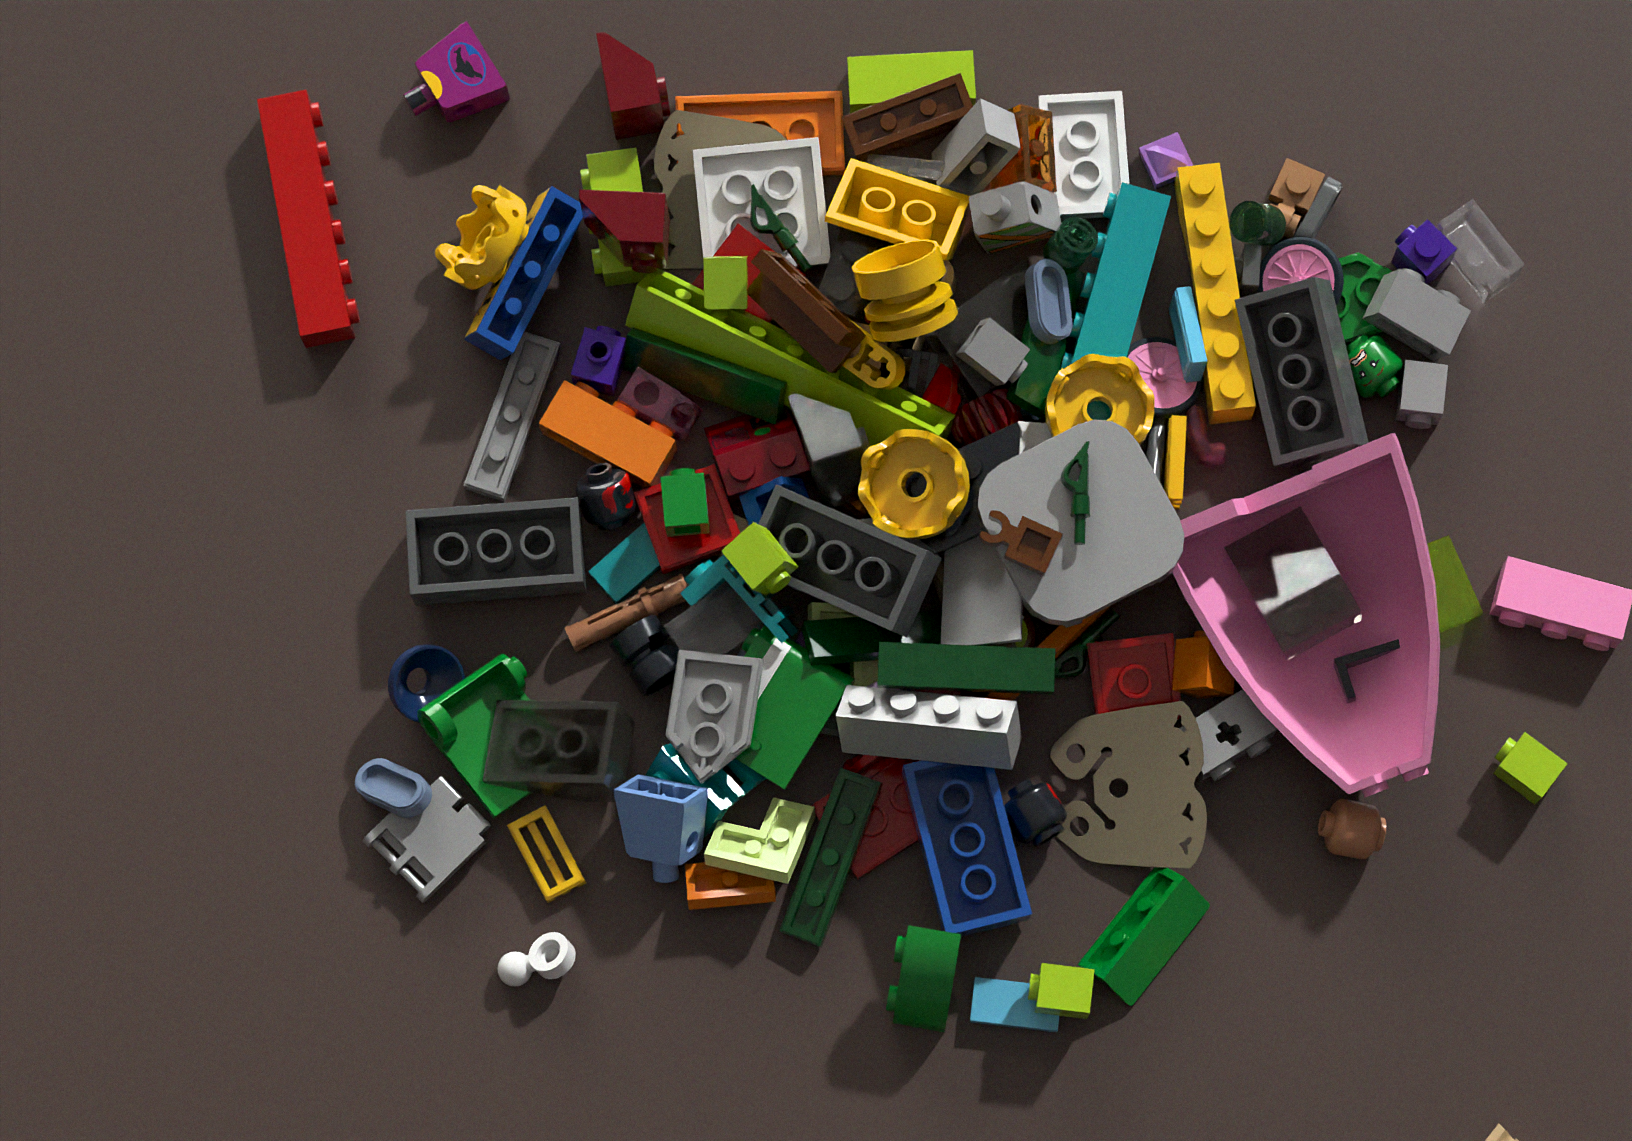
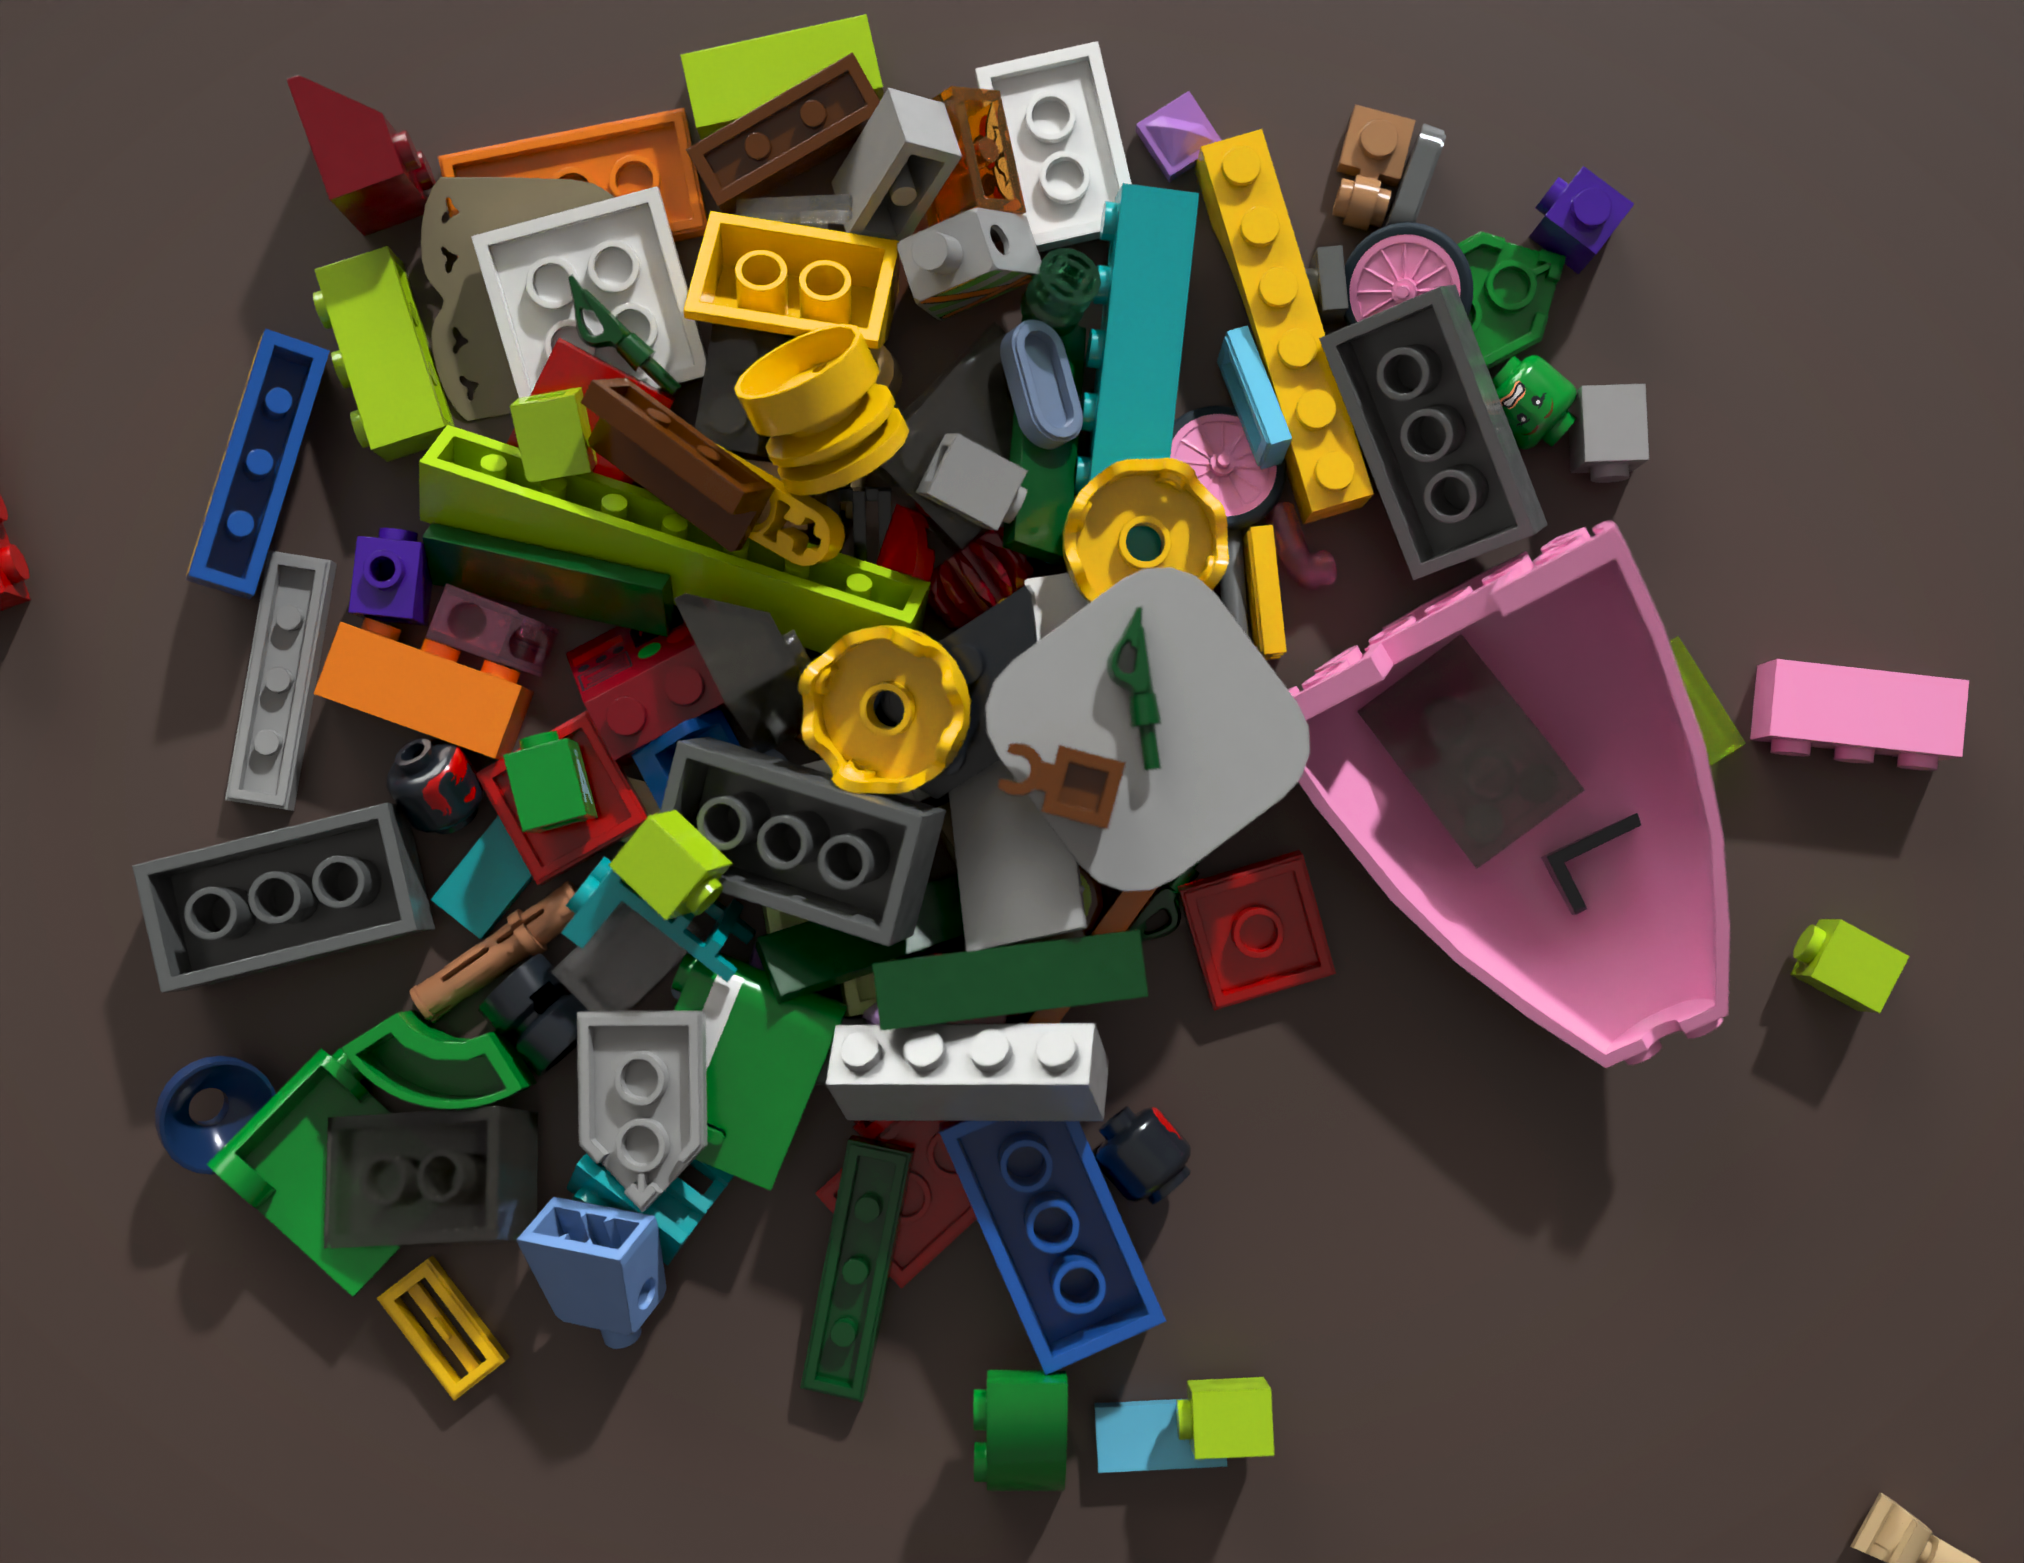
camera: 15 degrees left, 10 degrees up
(393, 787) = (197, 1276): sand blue tile -> none
(433, 841) = (266, 1333): light grey plate -> none
(457, 78) = (105, 180): magenta torso -> none
(486, 238) = (192, 417): yellow plate -> none
(549, 956) = (429, 1503): white plate -> none
(575, 675) = (435, 1068): none -> green brick
(630, 226) = (396, 370): dark red slope -> none
(721, 887) = (716, 1331): orange plate -> none
(767, 851) = (767, 1280): yellowish green plate -> none
(1145, 933) = (1327, 1301): green panel -> none
(1158, 782) = (1317, 1085): dark tan piece -> none
(1200, 669) = (1349, 899): orange brick -> none
(1234, 715) = (1365, 997): light grey brick -> none
(1248, 227) = (1317, 211): clear green wheel -> none
(1352, 829) = (1607, 1101): nougat head -> none
(1417, 313) = (1586, 311): light grey brick -> none
(1481, 252) = (1672, 205): clear panel -> none

